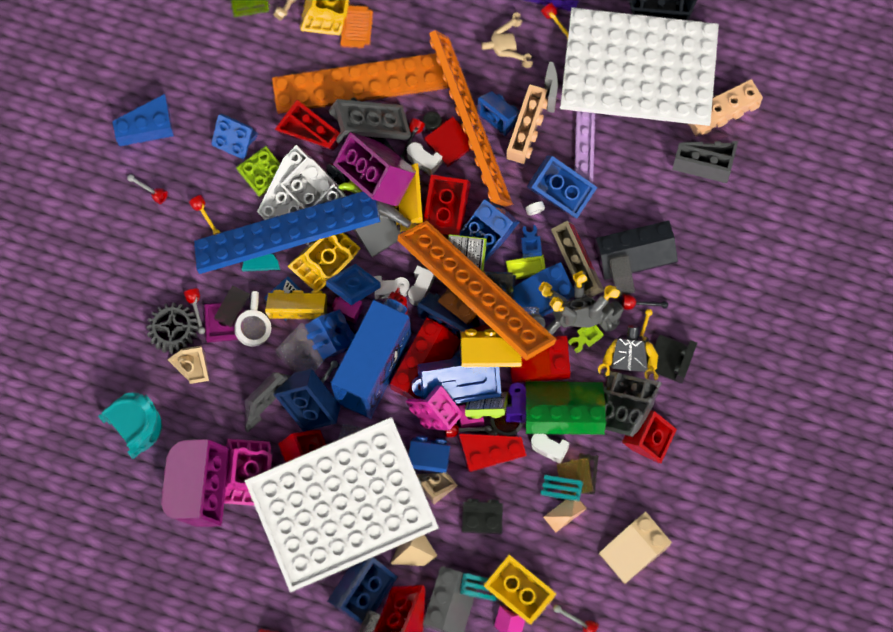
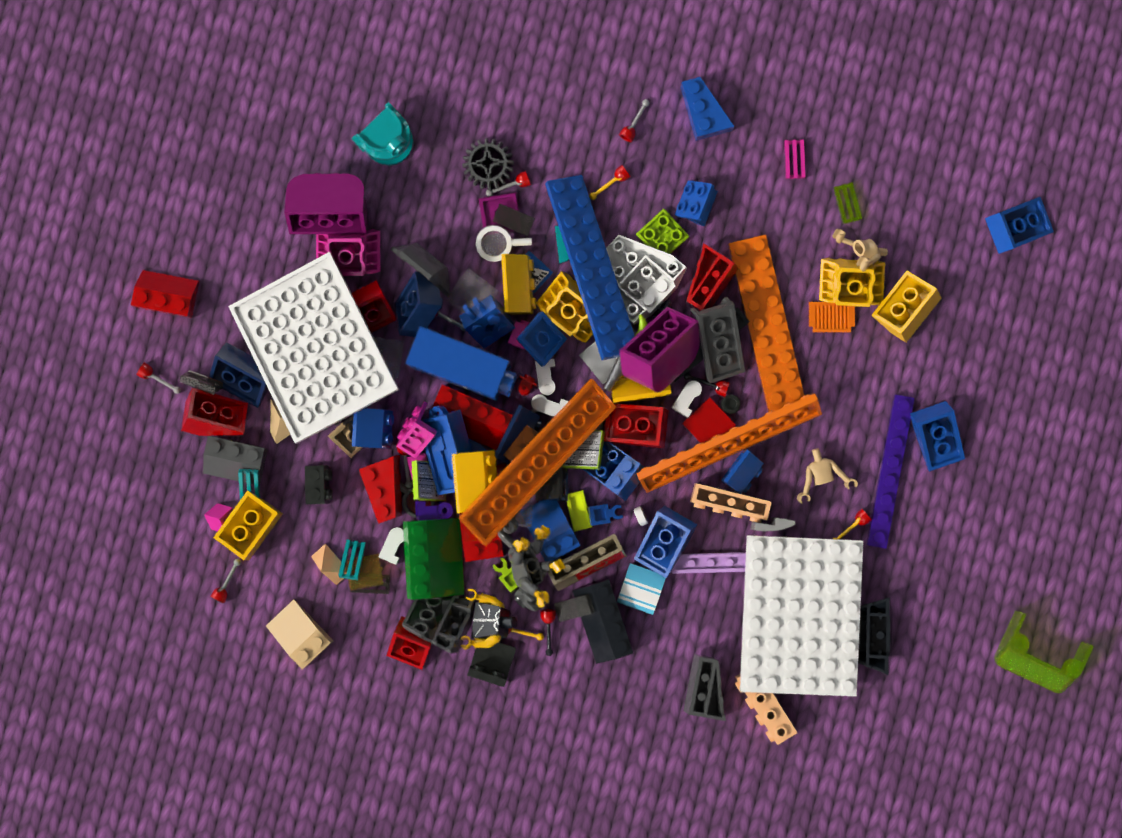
camera: 85 degrees right, 15 degrees up
(191, 364) = (451, 188): tan slope -> none
(202, 44) = (794, 143): none -> dark pink tile
(606, 213) = (641, 589): none -> slope

